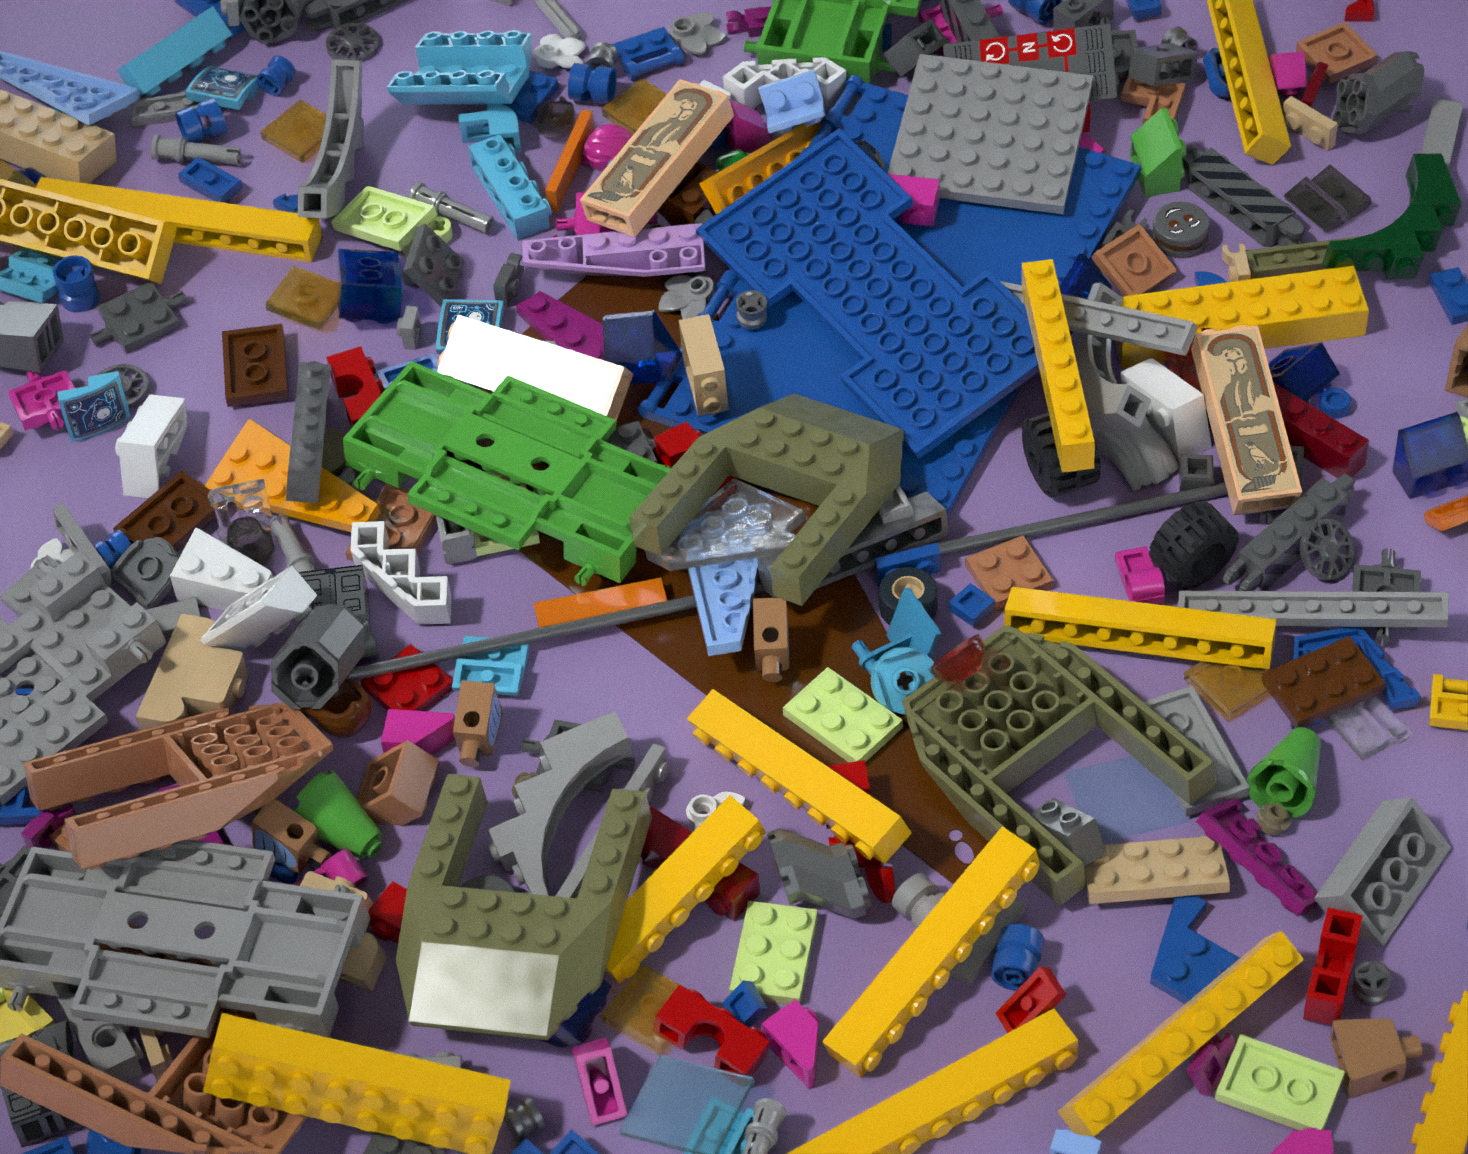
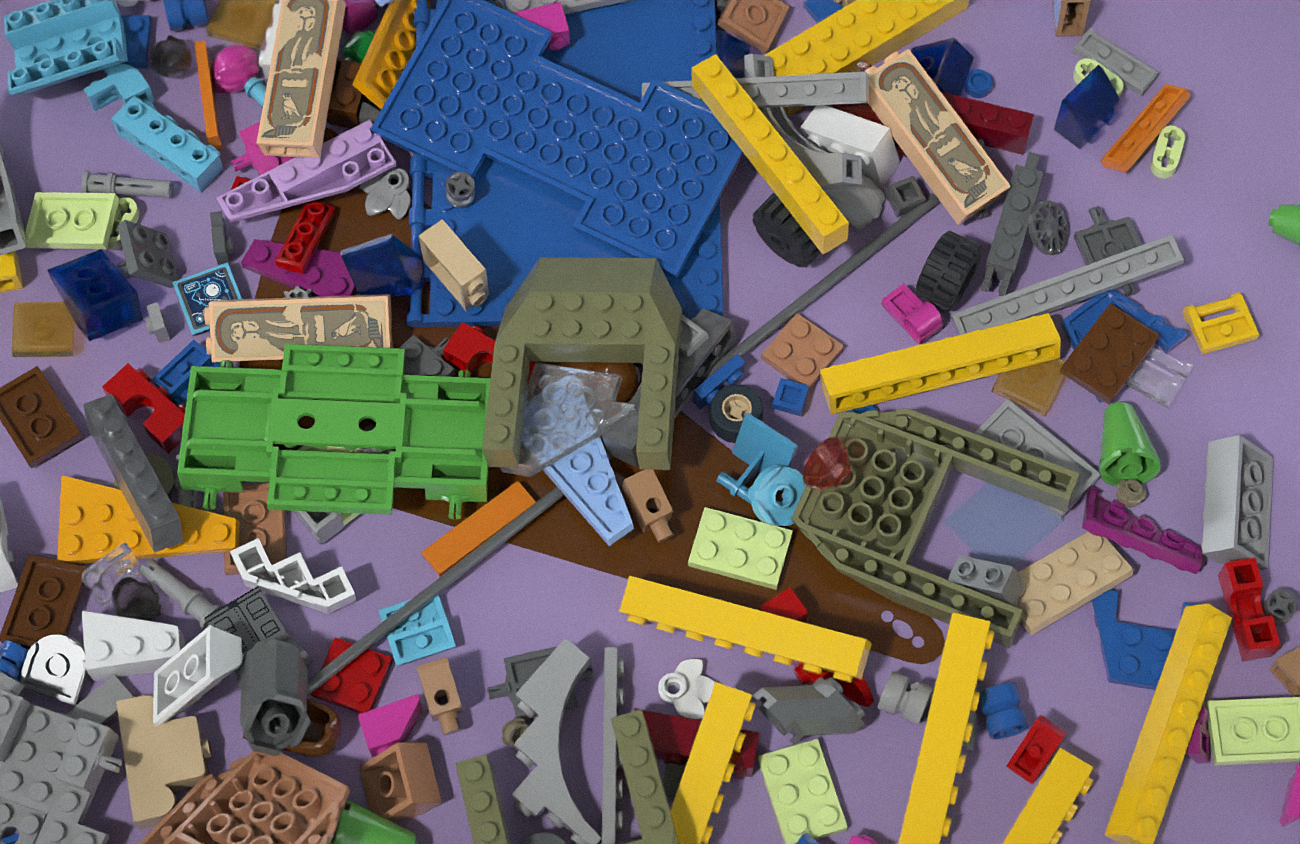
camera: 30 degrees left, 15 degrees up
(586, 303) = (305, 237): none -> red tile

